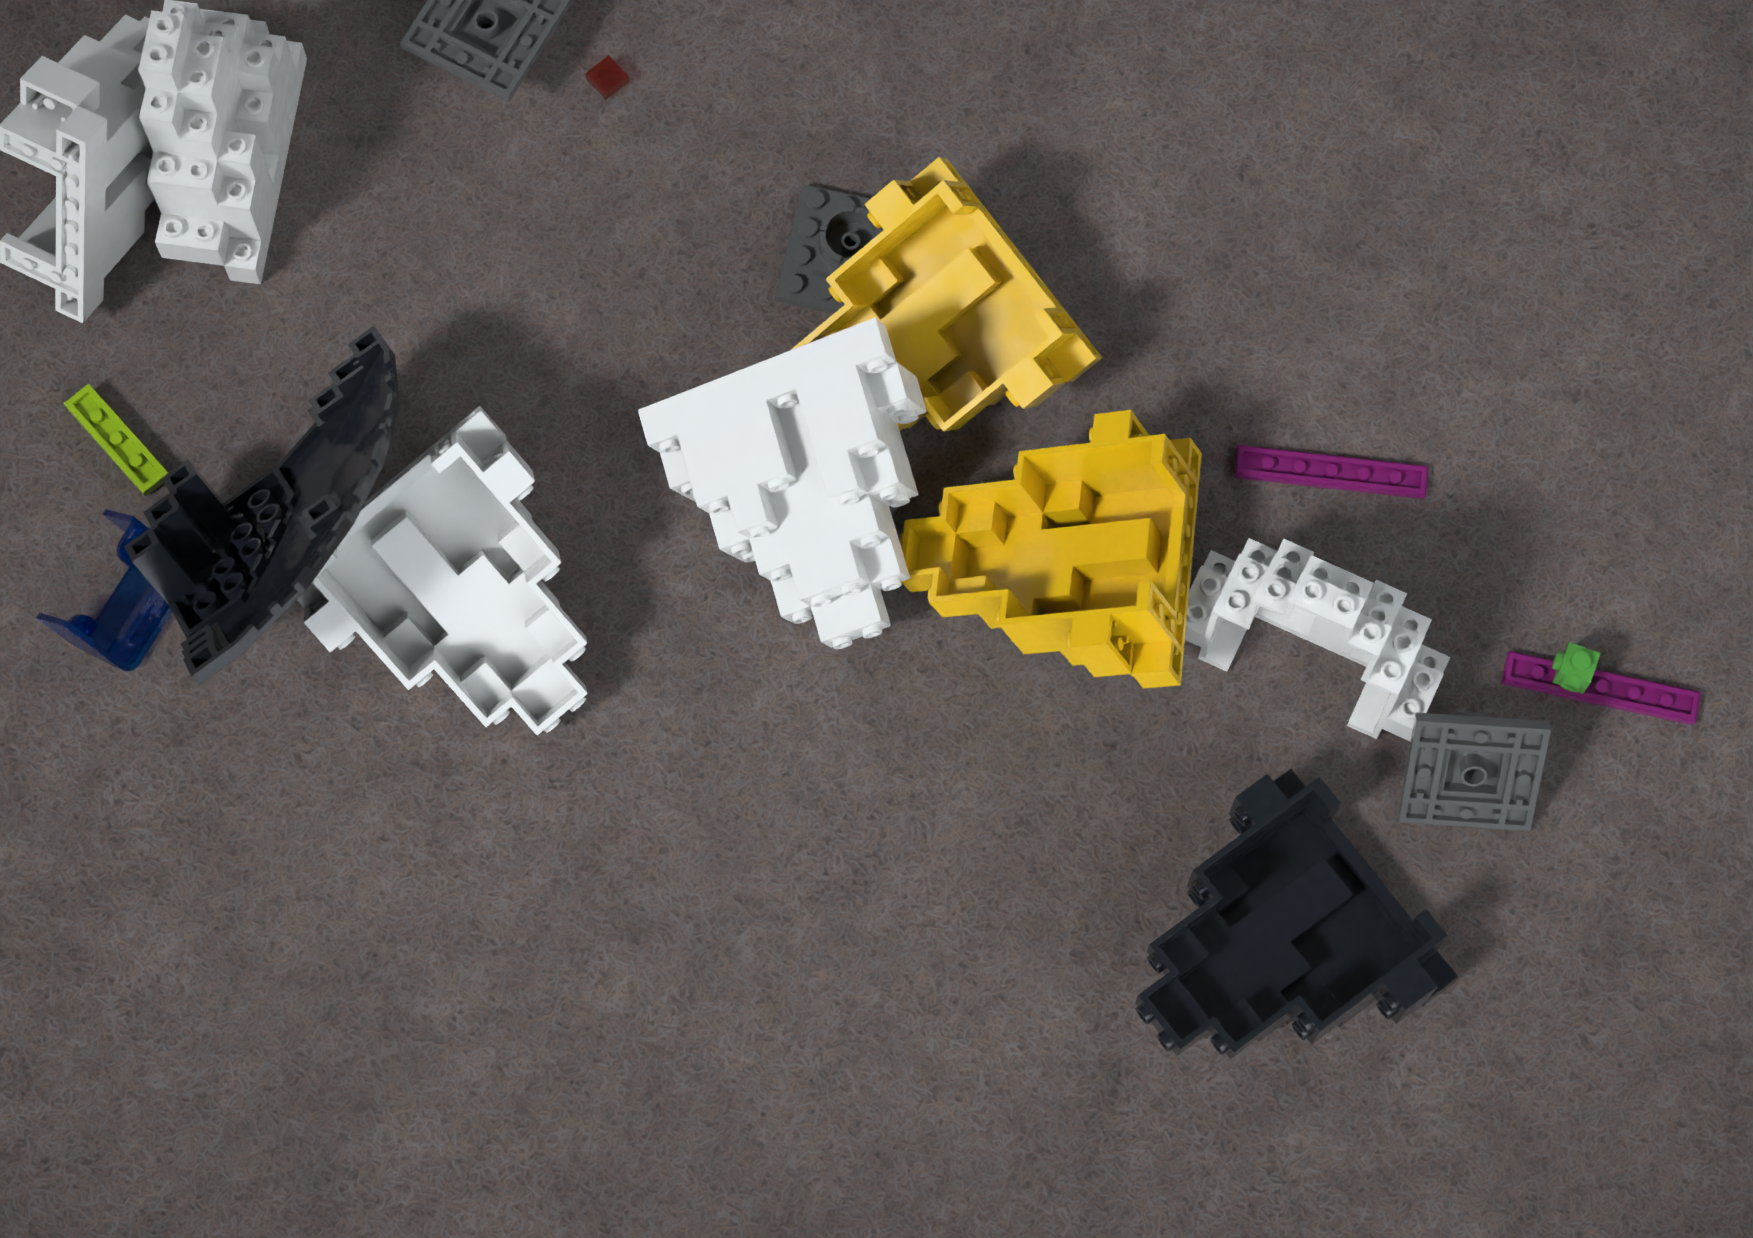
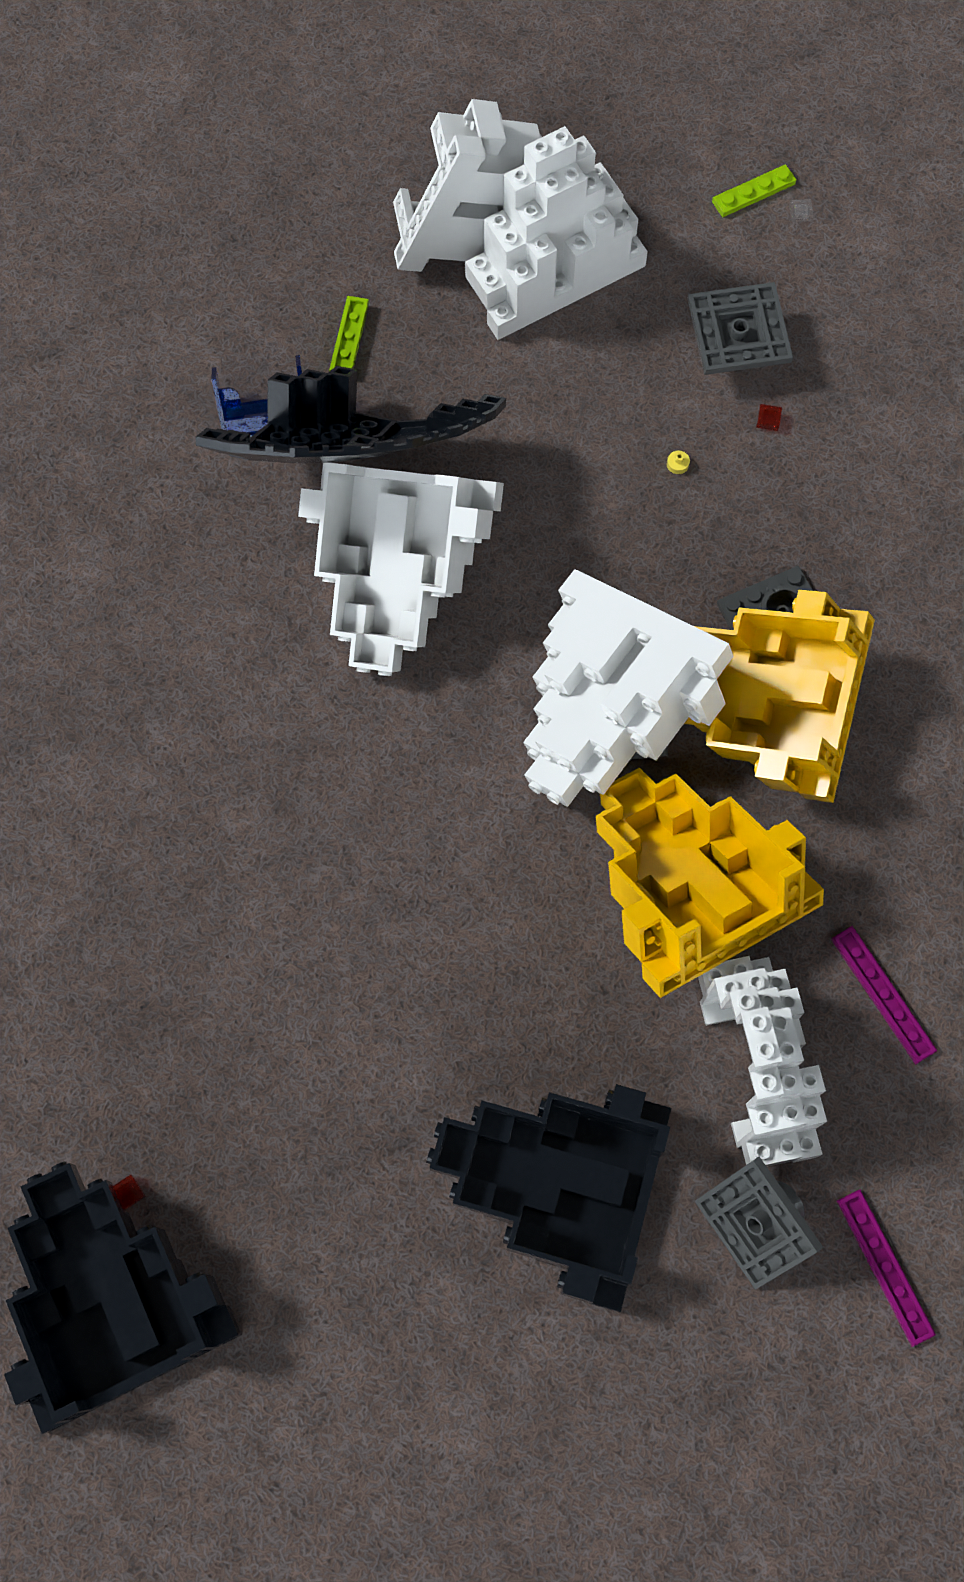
camera: 55 degrees right, 0 degrees up
(578, 210) = (678, 462): none -> light yellow tile
(1575, 667) = (881, 1239): bright green brick -> none

